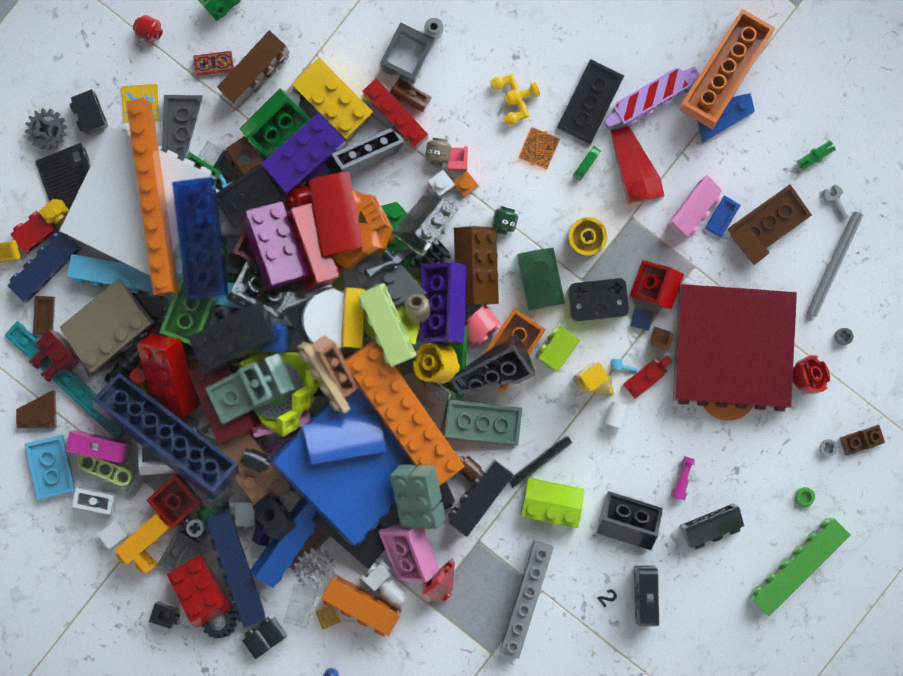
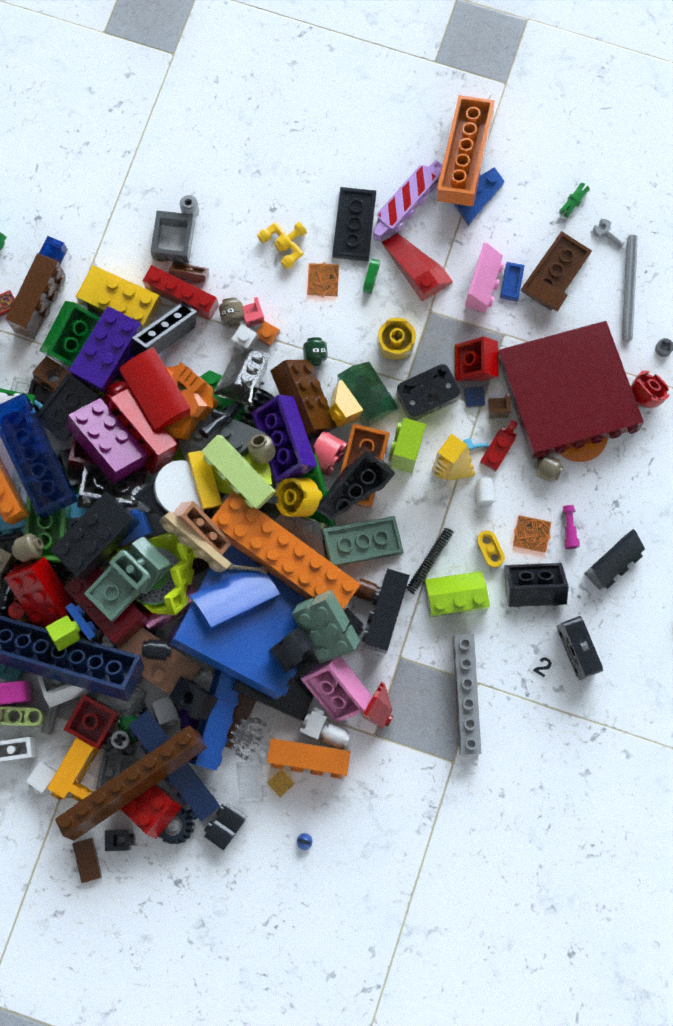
camera: 25 degrees left, 10 degrees down
(130, 621) = (87, 860): none -> reddish brown tile
(167, 325) = (27, 547): none -> dark tan head
(175, 416) = (63, 632): none -> lime brick
(192, 573) = (130, 783): none -> reddish brown brick
(193, 403) = (87, 627): none -> blue wing
(285, 26) = (54, 249): none -> clear blue panel
(378, 508) = (292, 649): none -> black brick
(379, 422) = (263, 569): none -> dark tan hinge
(511, 286) = (343, 405): none -> yellow slope
(600, 472) = (490, 549): none -> yellow plate
(645, 470) = (532, 534): none -> clear orange piece
(684, 416) = (548, 468): none -> dark tan head

